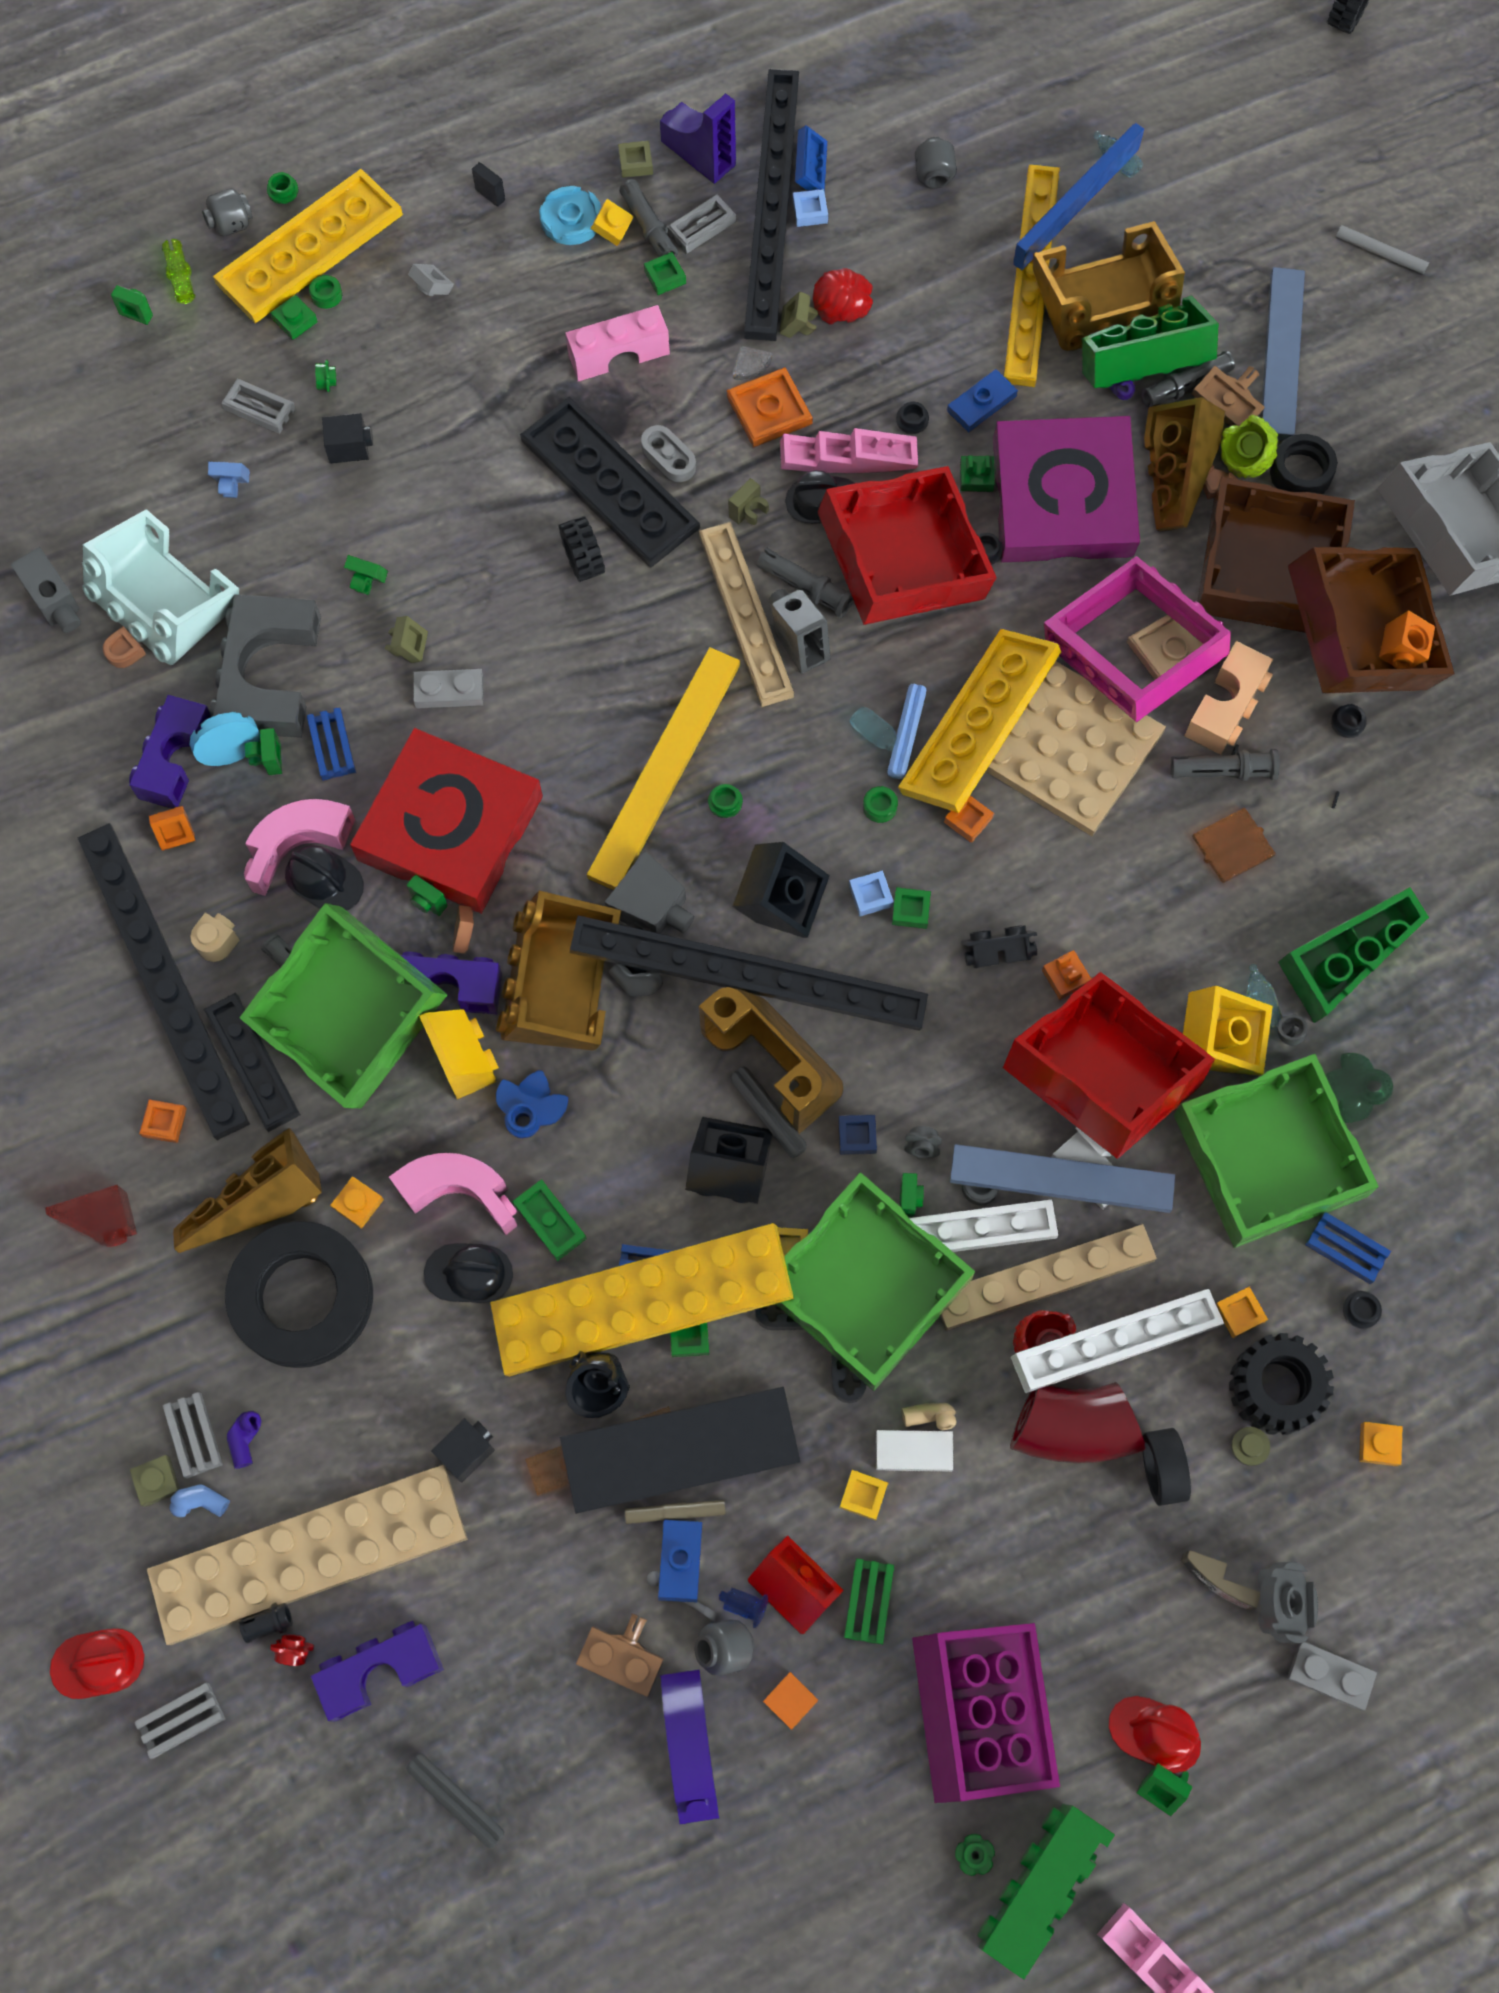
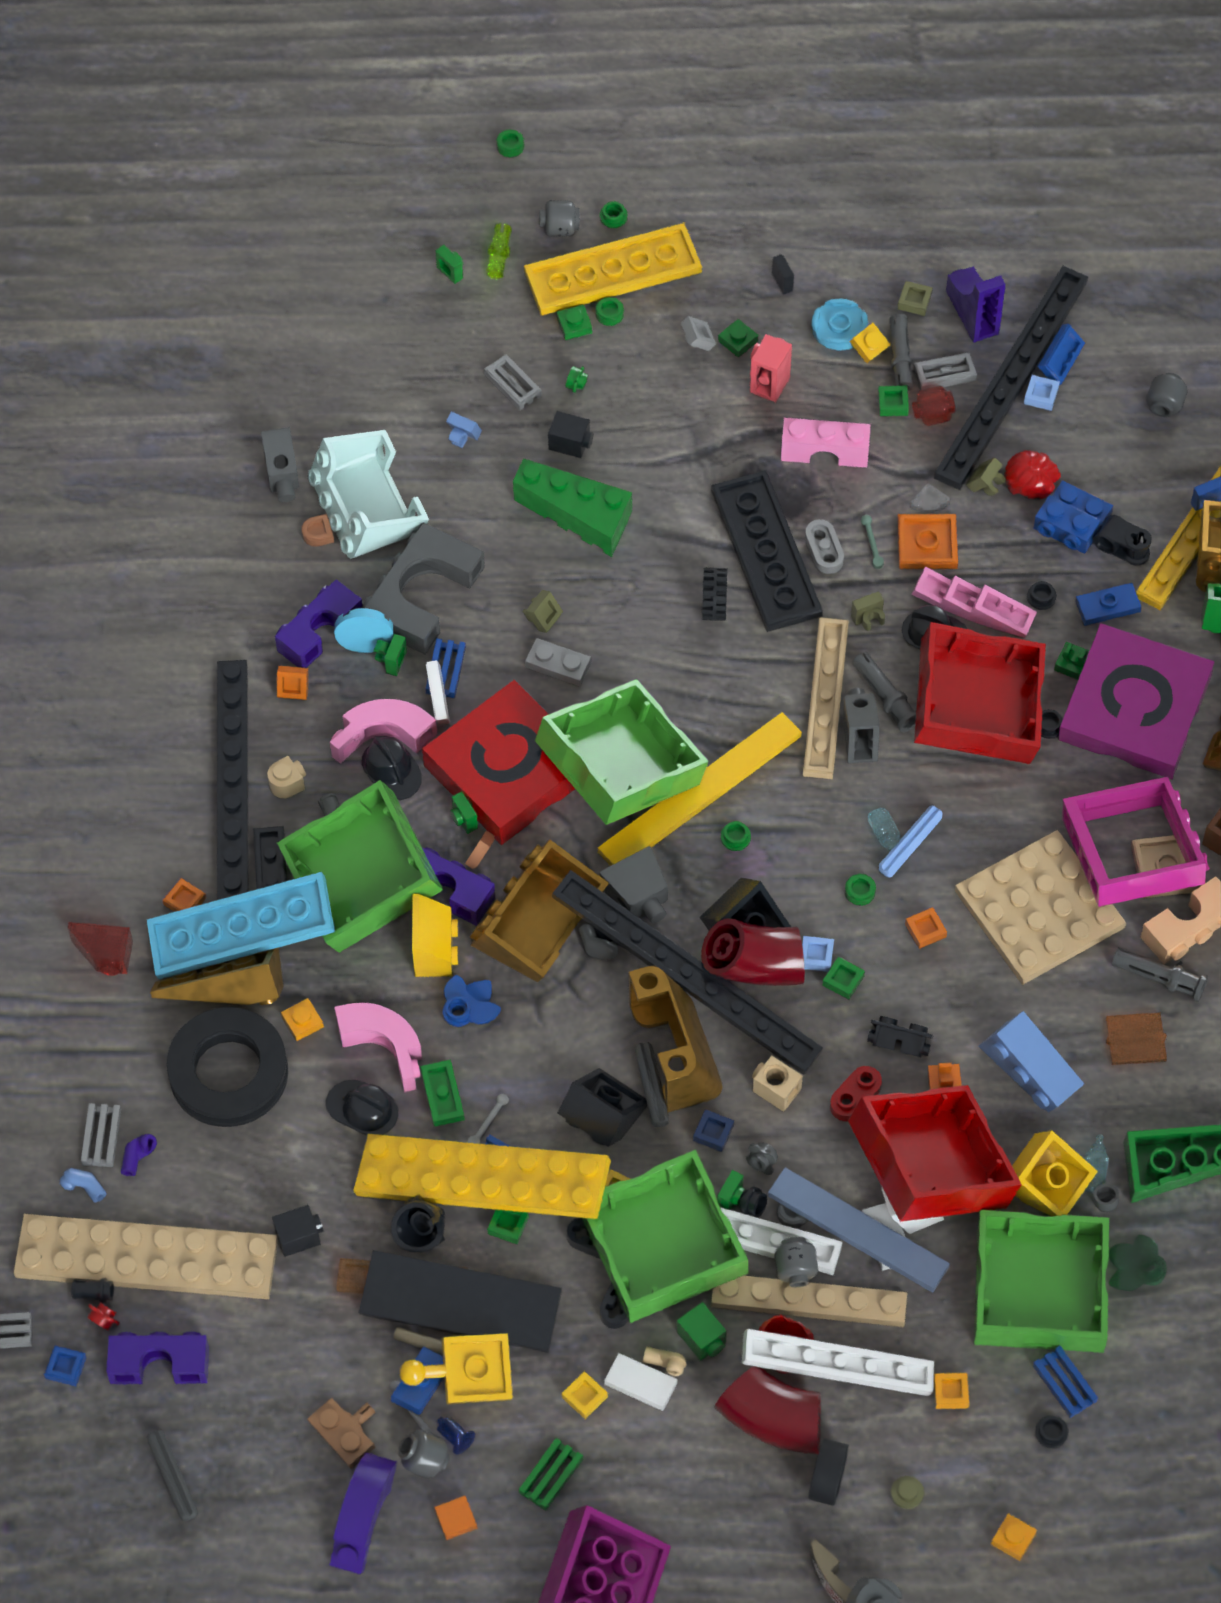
camera: 25 degrees right, 10 degrees down
(137, 153) = (510, 143): none -> green tile
(154, 1480) = (58, 1155): olive plate -> none
(241, 1129) = (240, 925): none -> medium azure plate
(274, 1725) = (65, 1365): none -> blue tile
(336, 775) = (437, 692): none -> white tile
(364, 574) = (533, 546): green tile -> none
(386, 509) = (575, 503): none -> green wedge
(473, 269) = (738, 338): none -> green plate
(524, 285) = (770, 367): none -> coral brick
(567, 761) = (621, 751): none -> bright green tile
(608, 1258) = (502, 1100): none -> light grey hinge
(709, 262) = (934, 406): none -> clear red head
(729, 448) = (877, 562): none -> sand green hinge
(731, 1524) = (472, 1368): none -> yellow plate
(795, 1585) = (499, 1435): red panel -> none
(814, 923) = (754, 953): none -> dark red brick
(903, 324) = (1072, 516): none -> blue plate
(909, 1042) = (781, 1094): none -> tan brick
(937, 1196) = (753, 1202): none -> black plate
(955, 1367) = (702, 1332): none -> green brick
(964, 326) = (1122, 537): none -> black piece
(979, 720) = (972, 854): yellow plate -> none
(983, 1026) = (853, 1090): none -> red plate
(1019, 1246) = (796, 1261): none -> dark grey head
(1148, 916) = (1032, 1062): none -> medium blue wedge
(1305, 1366) = (959, 1429): black tyre -> none

